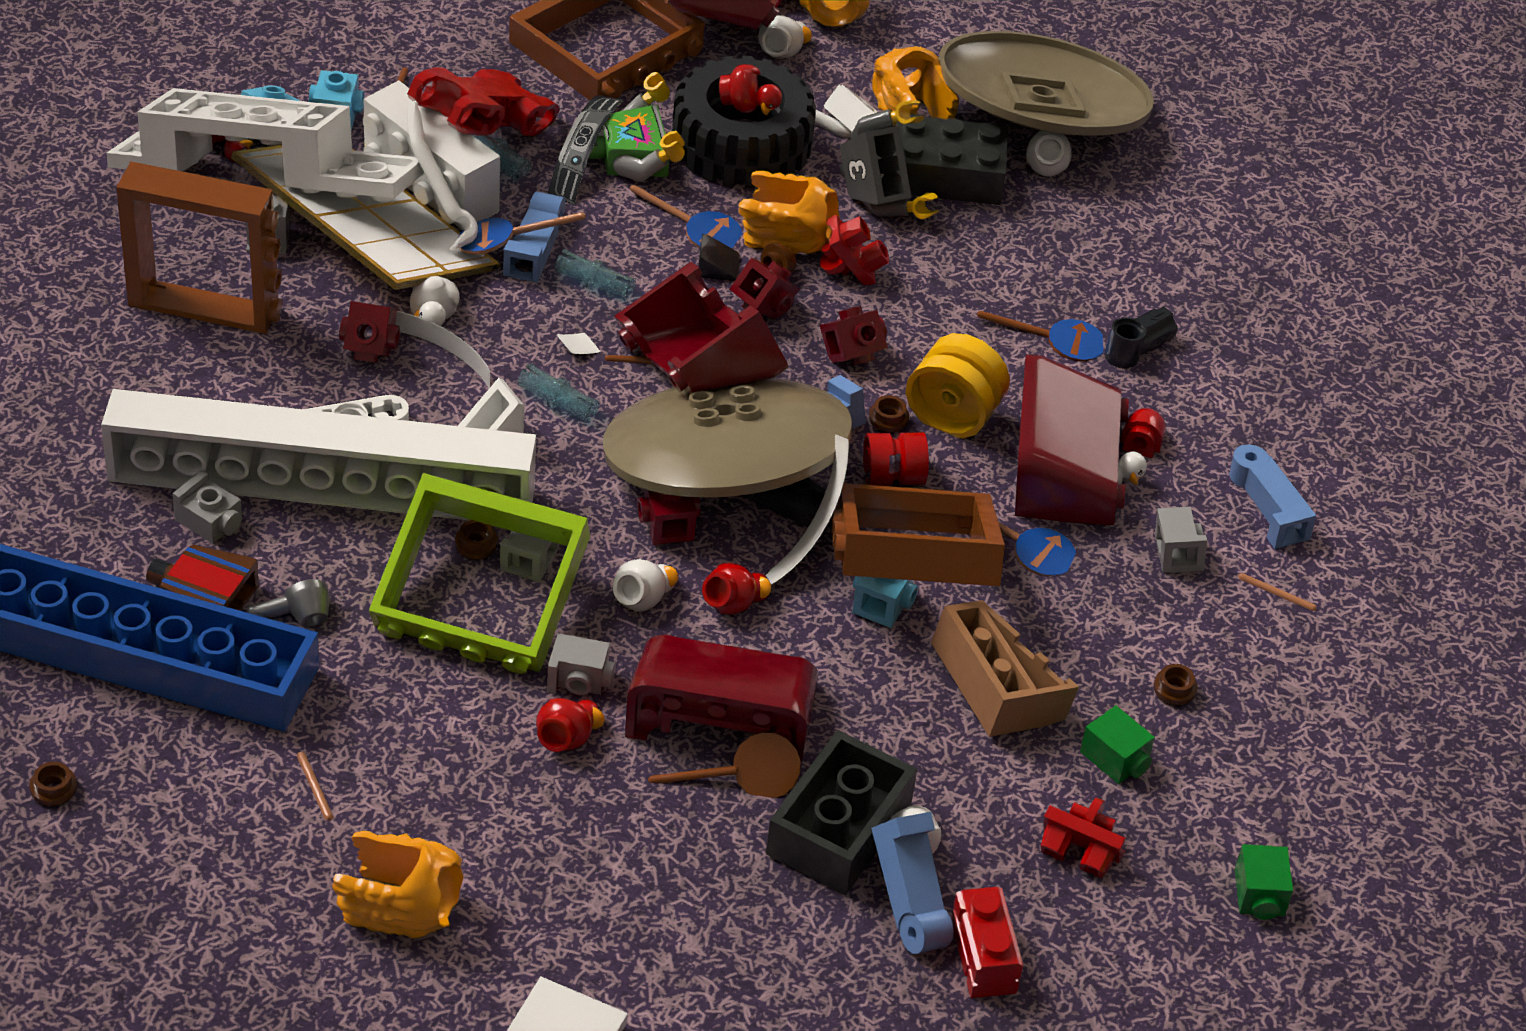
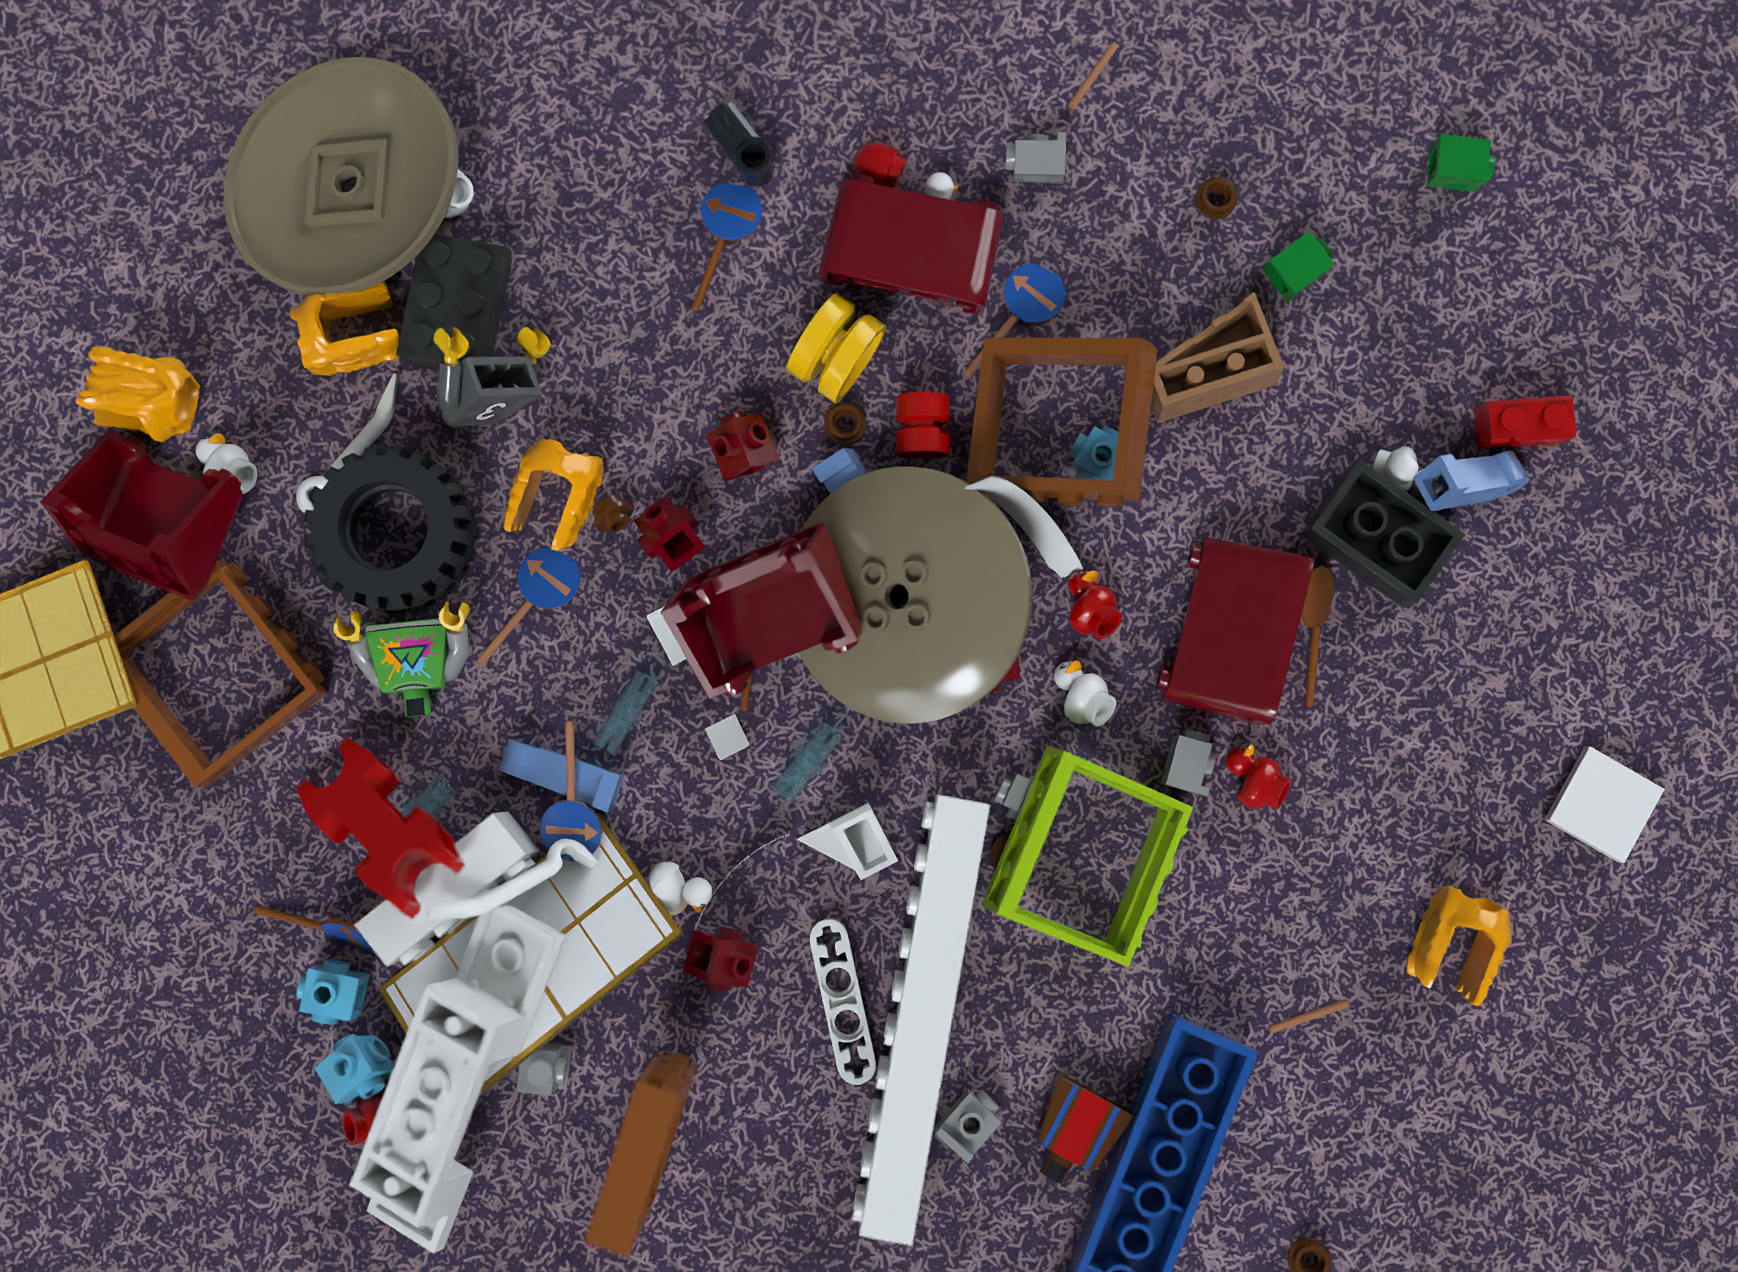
camera: 80 degrees left, 40 degrees up
(304, 600) = (1101, 1024): flat silver bar -> none
(579, 145) = (414, 712): sticker -> none
(717, 260) = (603, 578): black slope -> none
(743, 93) = (389, 529): red animal -> none
(847, 253) = (613, 431): red hips -> none
(848, 106) = (368, 396): white slope -> none
(1086, 829) = (1399, 313): red hips -> none
(1273, 496) = (976, 53): medium blue leg -> none

